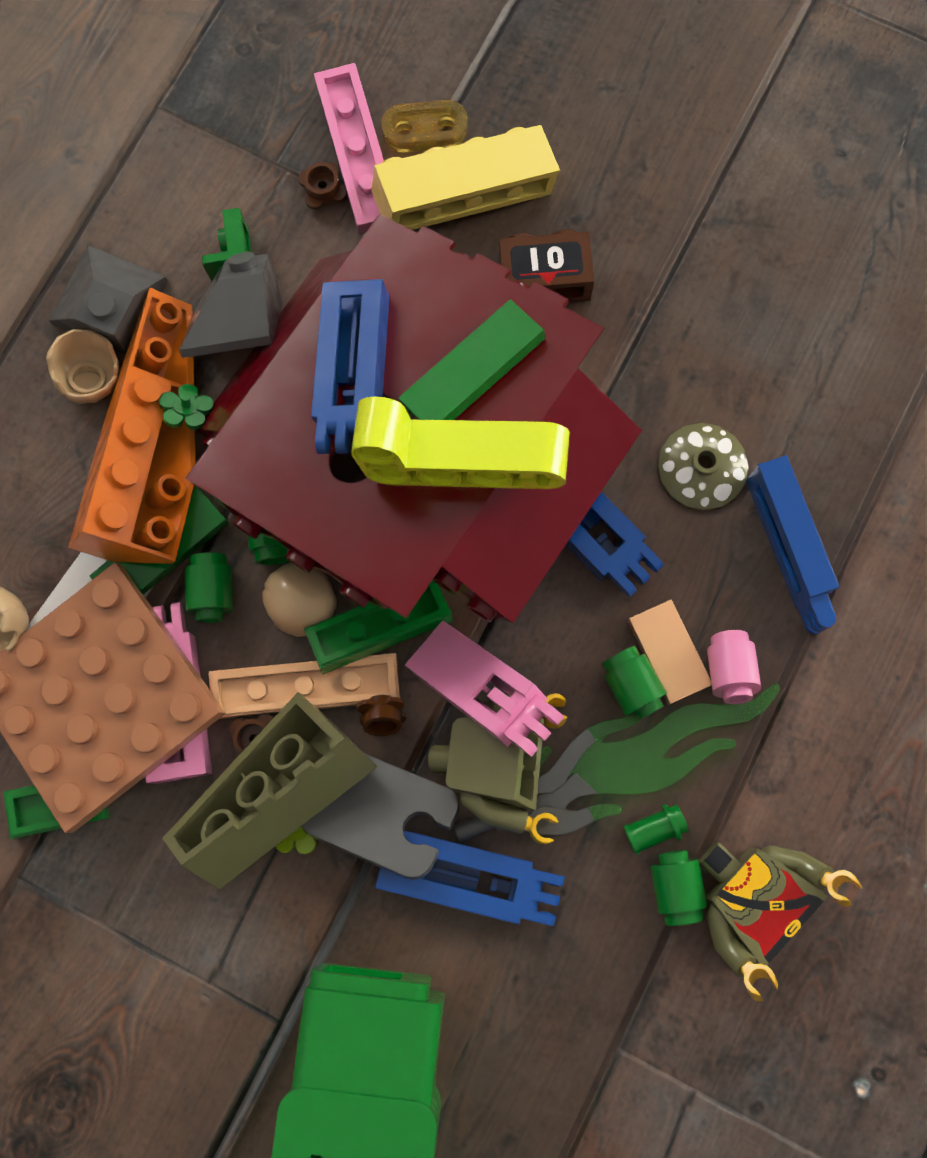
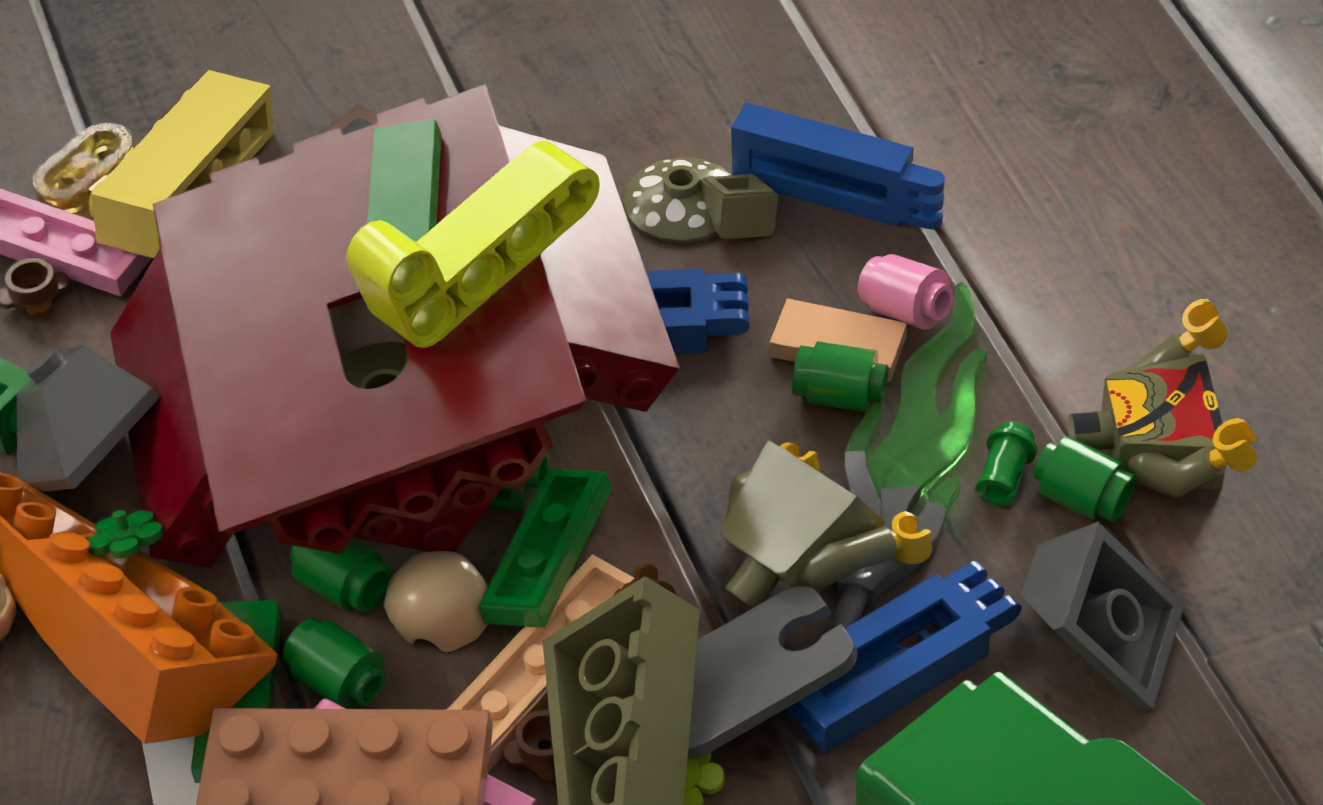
camera: 50 degrees left, 30 degrees down
(348, 353) = (271, 291): blue hinge -> none
(461, 670) = (713, 470): bright pink hinge -> none
(582, 978) = (1106, 609): none -> dark grey slope
(721, 507) = (739, 205): none -> olive slope

